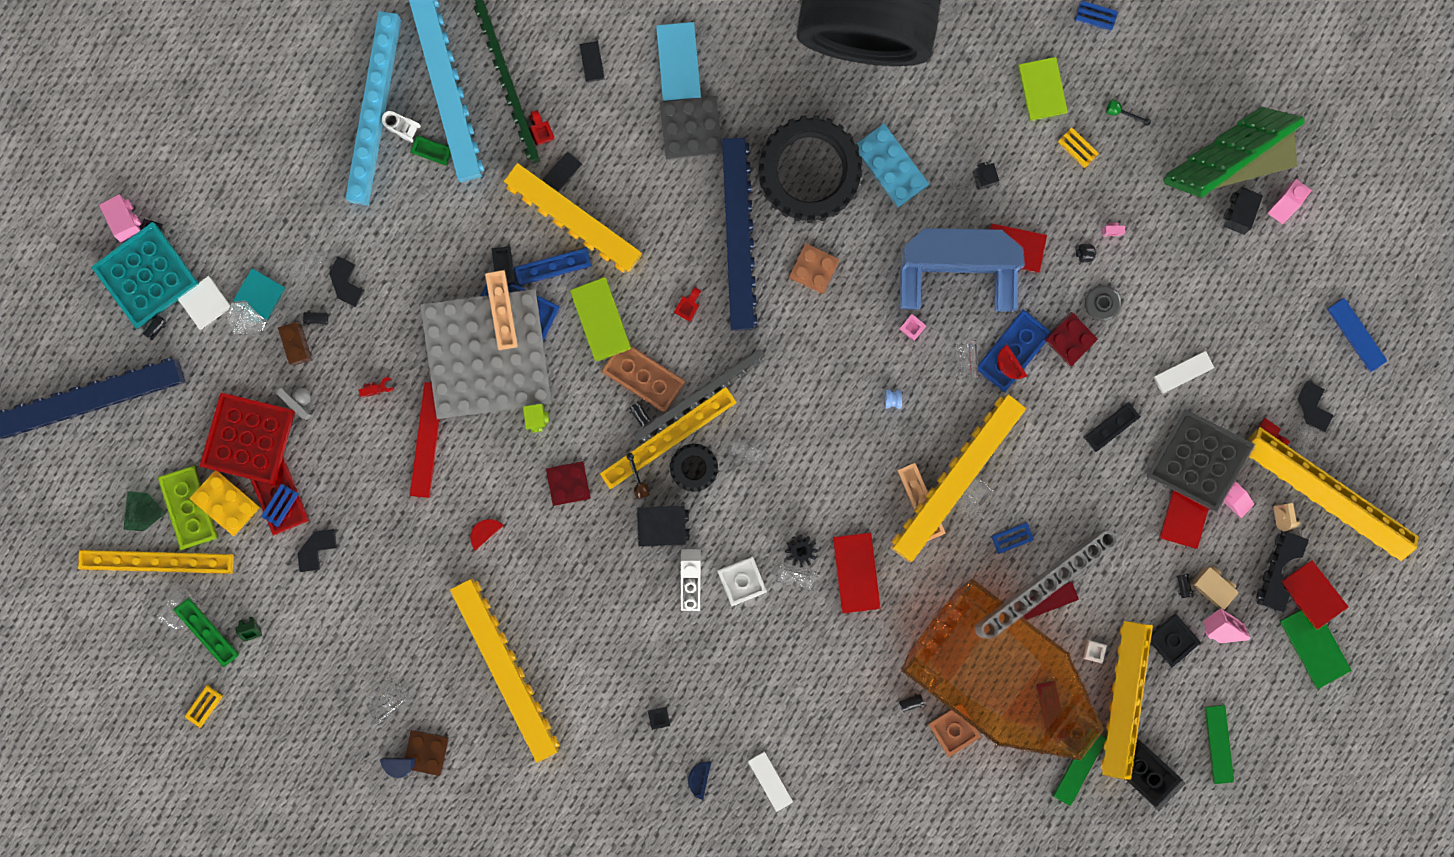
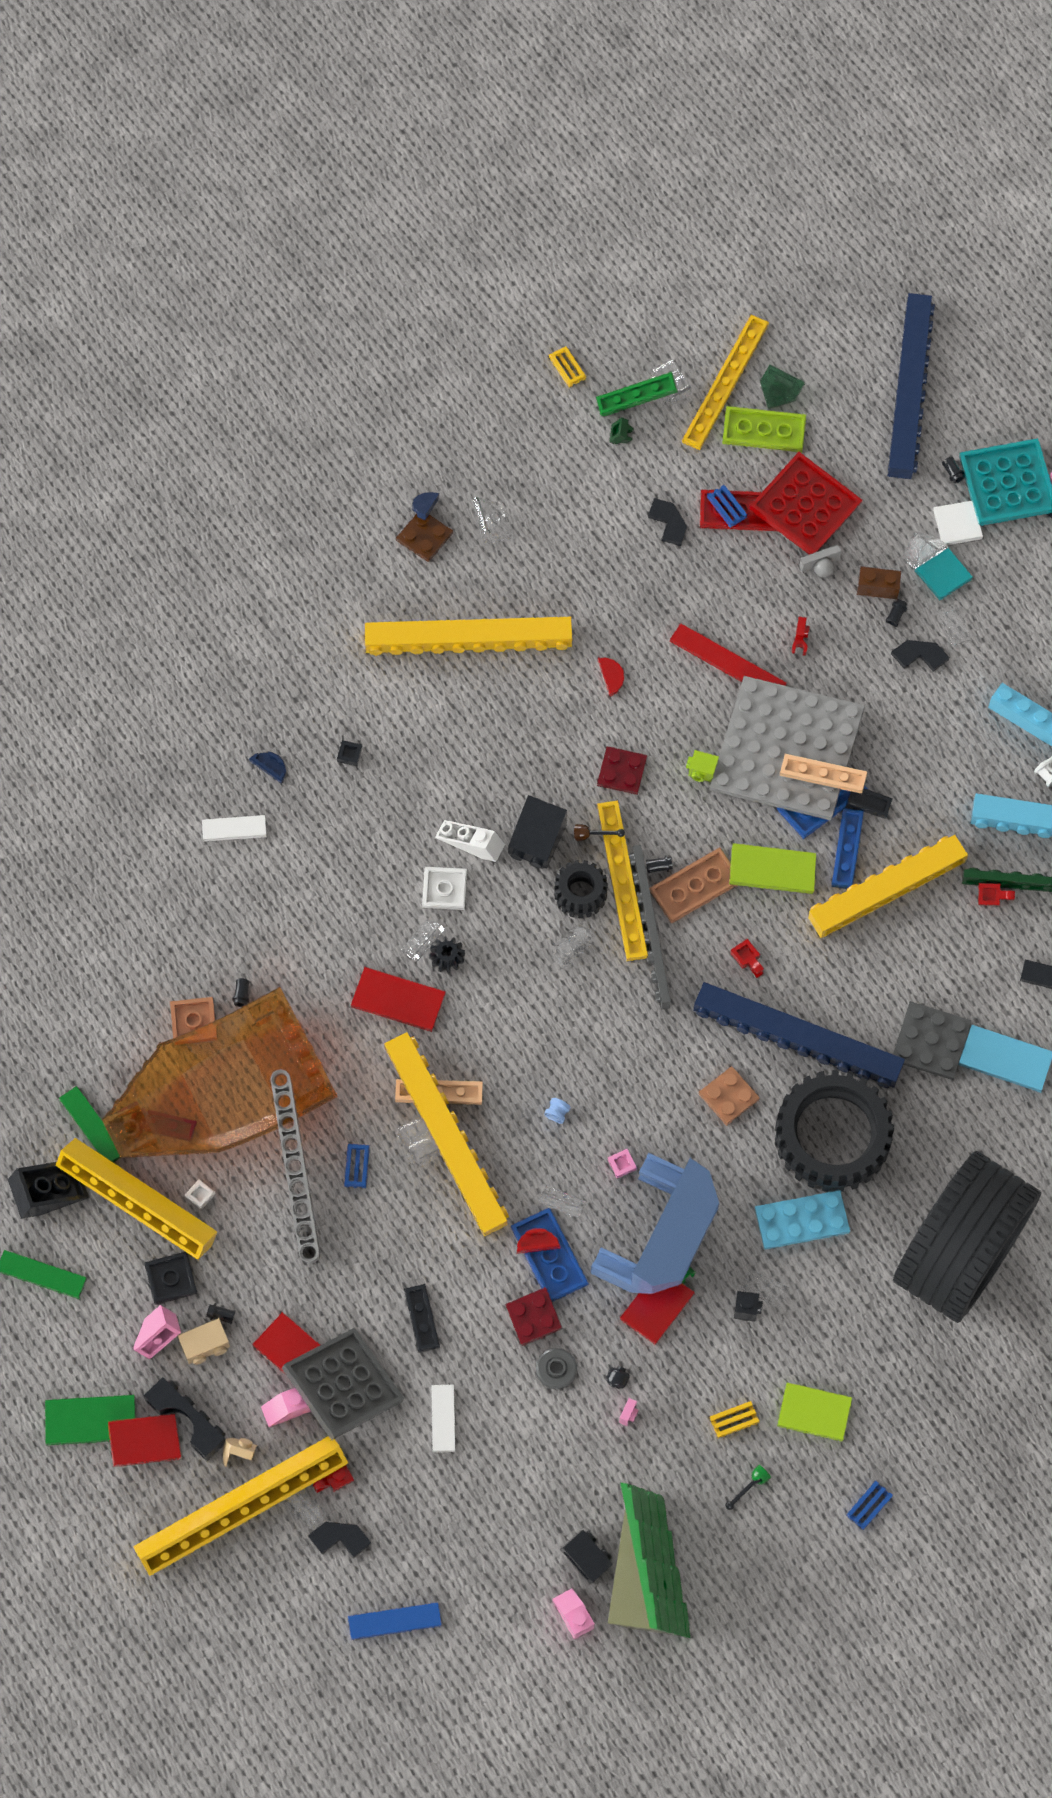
camera: 115 degrees right, 20 degrees down
(224, 503) = (752, 461): yellow plate -> none
(431, 150) = (1019, 785): green tile -> none
(562, 172) = (940, 898): black tile -> none
(1062, 596) = (274, 1174): dark red tile -> none

